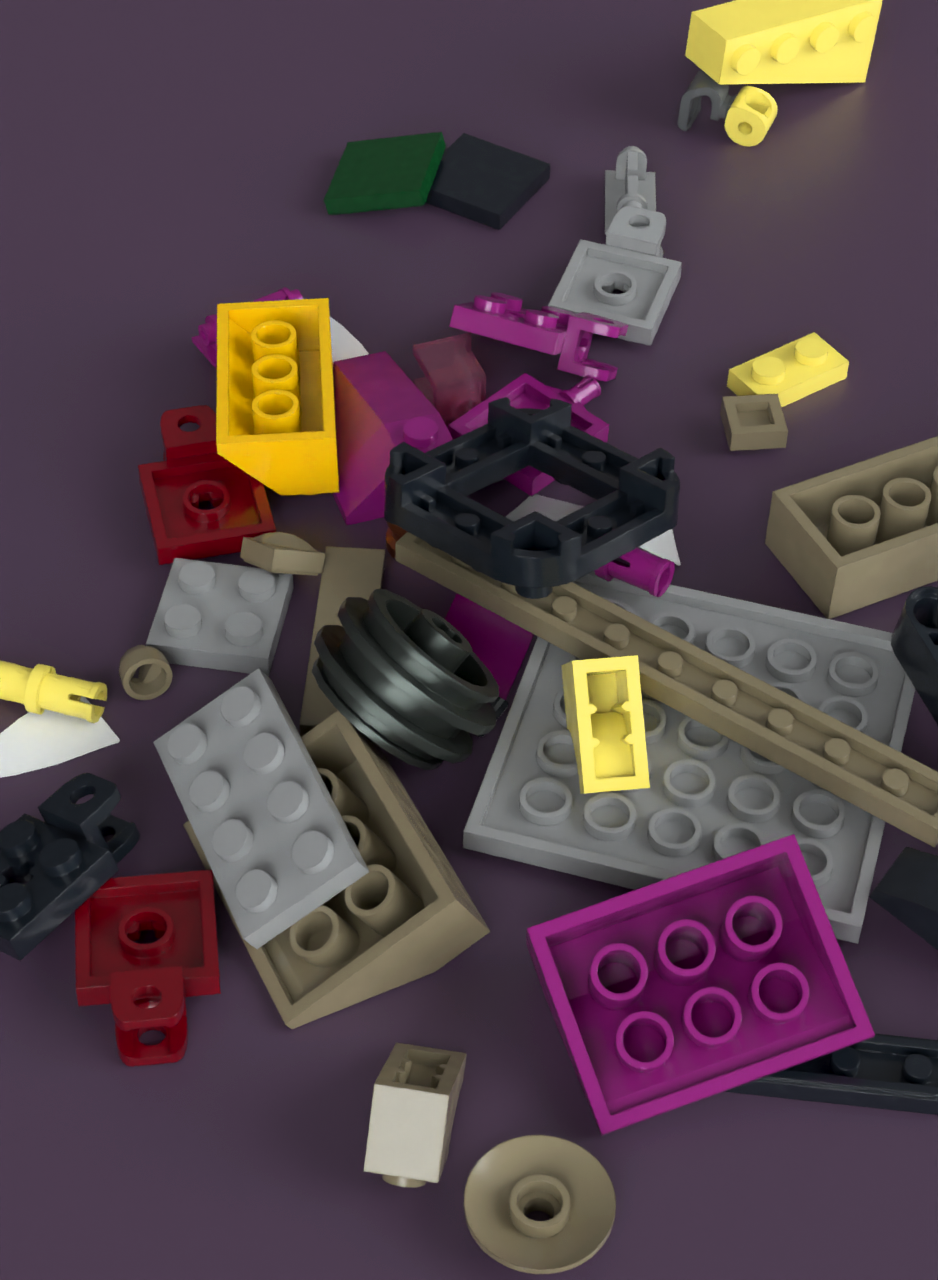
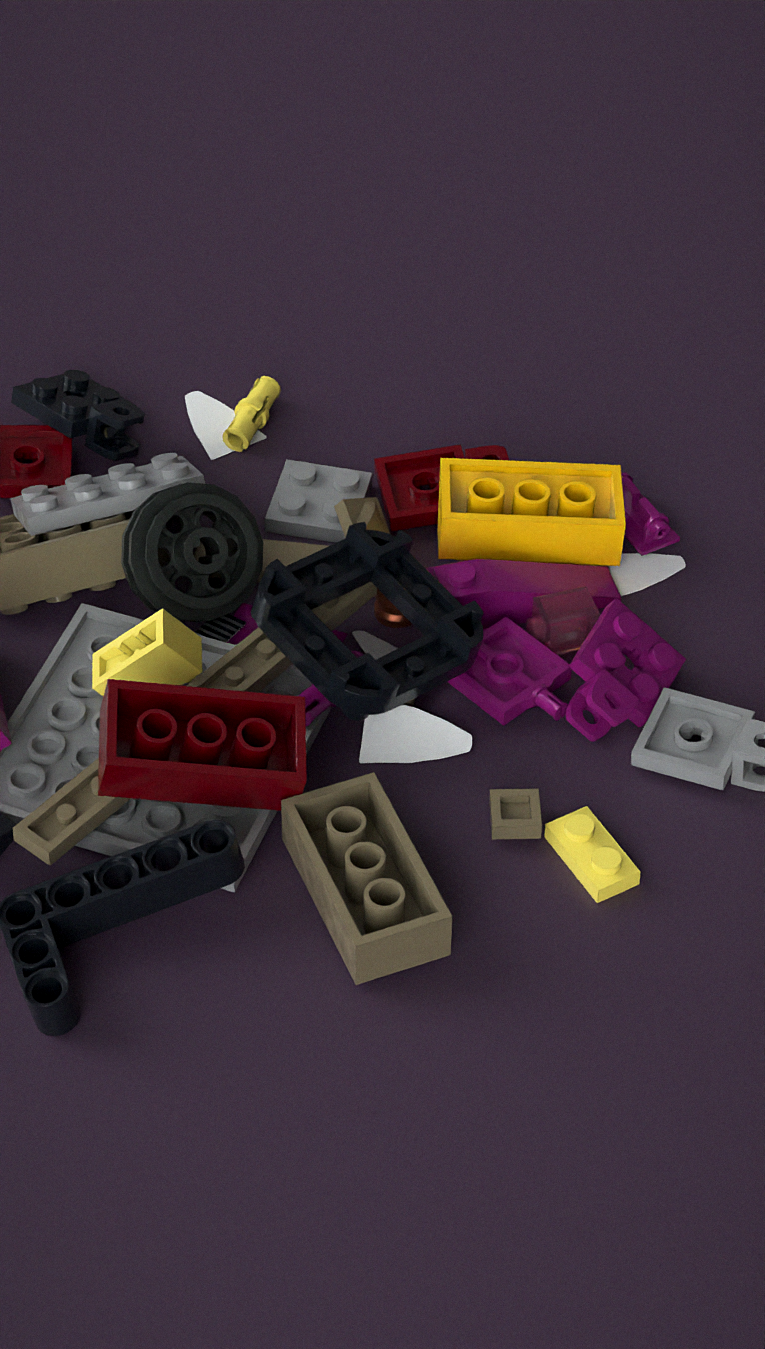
camera: 95 degrees right, 0 degrees up
(153, 676) = (261, 460): dark tan hinge -> none
(794, 628) = (201, 745): none -> dark red brick

